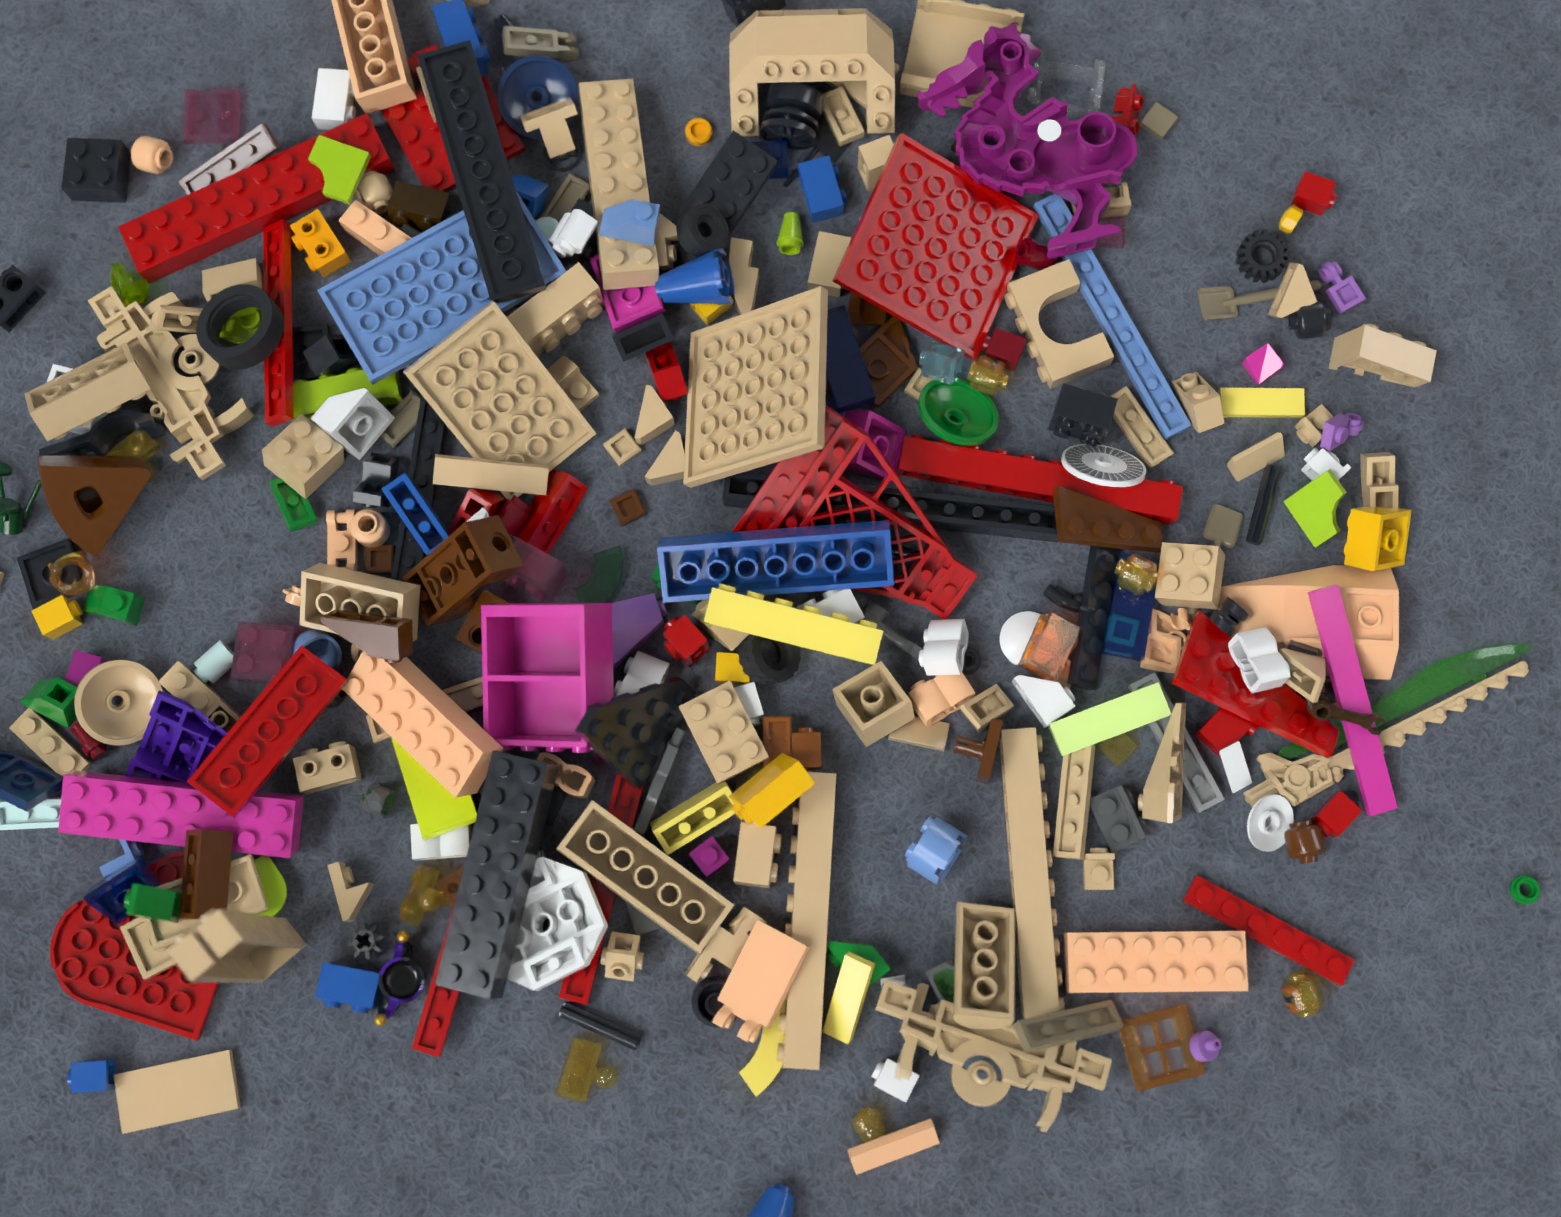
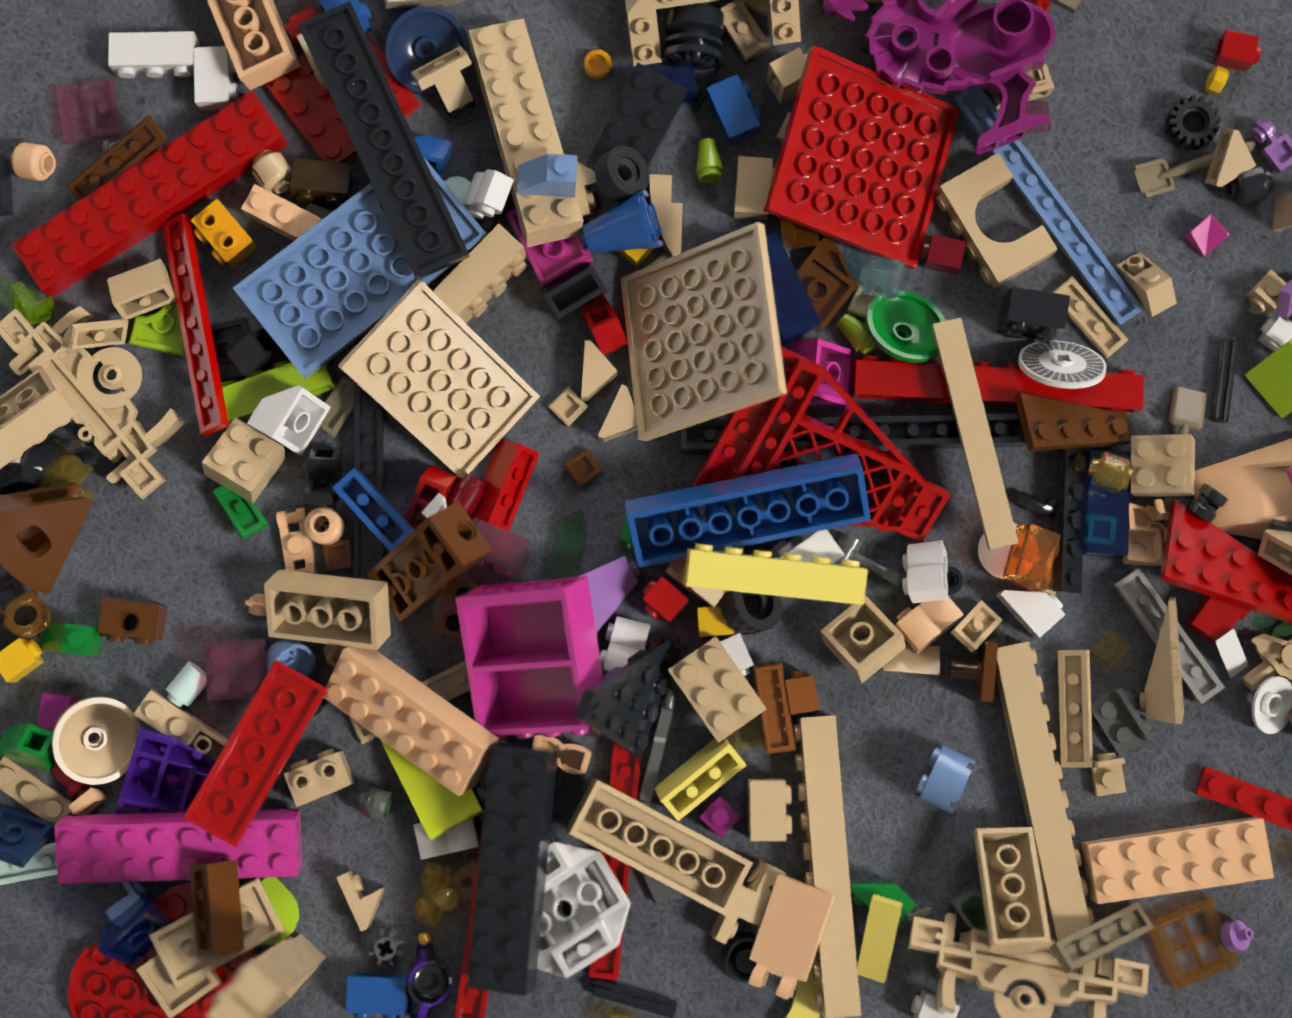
camera: 10 degrees left, 5 degrees up
(101, 761) = (88, 802): none -> light nougat tile
(153, 903) = (169, 946): green slope -> none
(158, 586) = (114, 619): none -> reddish brown brick
(221, 308) = (137, 314): black tyre -> none
(279, 69) = (152, 53): none -> white brick
(340, 166) = (235, 151): lime tile -> none
(375, 634) = (348, 639): slope -> none
(490, 474) = (440, 456): tan tile -> none
(567, 196) = (471, 154): dark tan tile -> none
(573, 383) = (507, 346): tan slope -> none
(622, 956) = (647, 928): tan brick -> none
(770, 790) = (775, 745): yellow brick -> none
(909, 413) = (856, 333): none -> lime cone
(988, 375) = (930, 284): clear yellow head -> none
(1008, 520) = (974, 434): none -> tan tile
(1033, 254) = (961, 152): dark red brick -> none
(1049, 130) = (964, 22): white sticker -> none
(1109, 719) = (1102, 623): yellowish green brick -> none
(1257, 457) = (1213, 333): tan slope -> none
(1259, 659) = (1245, 545): white brick -> none
(1263, 402) = (1212, 275): light yellow tile -> none

